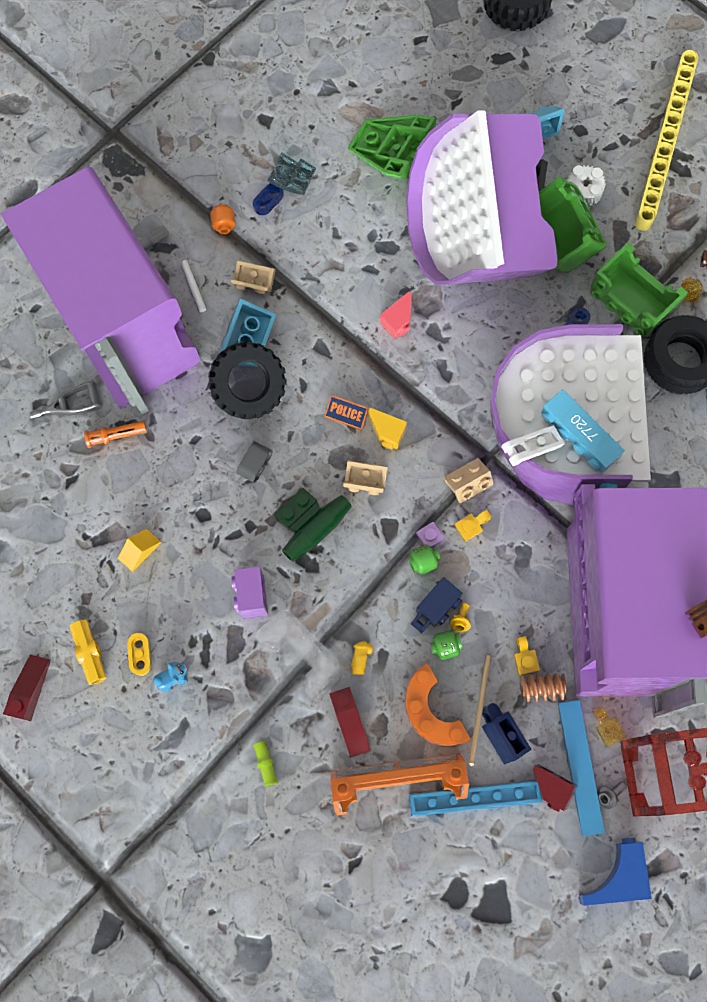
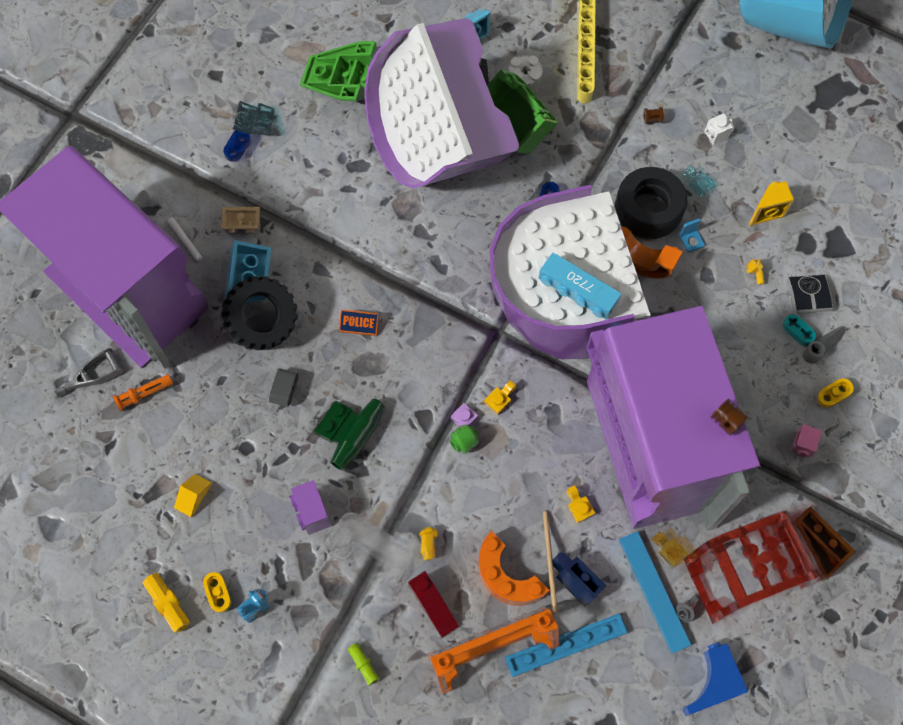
camera: 20 degrees left, 5 degrees down
(27, 688) = (115, 653): dark red slope -> none
(222, 219) = (198, 172): orange head -> none
(365, 477) = (391, 376): tan bracket -> none
(387, 428) = (400, 328): yellow slope -> none
(397, 317) = (384, 225): coral slope -> none
(437, 605) = (486, 477): dark blue brick -> none
(446, 645) = (504, 511): bright green head -> none
(460, 622) = (512, 488): yellow plate -> none
(469, 480) = (487, 358): tan bracket -> none
(533, 445) = (539, 307): white plate -> none
(540, 687) = (602, 527): nougat piece -> none
(554, 788) = (636, 616): dark red slope -> none
(635, 293) = (593, 158): bright green windscreen -> none
(667, 418) = (651, 262): none -> orange brick
(693, 288) = (641, 145): clear yellow gear -> none

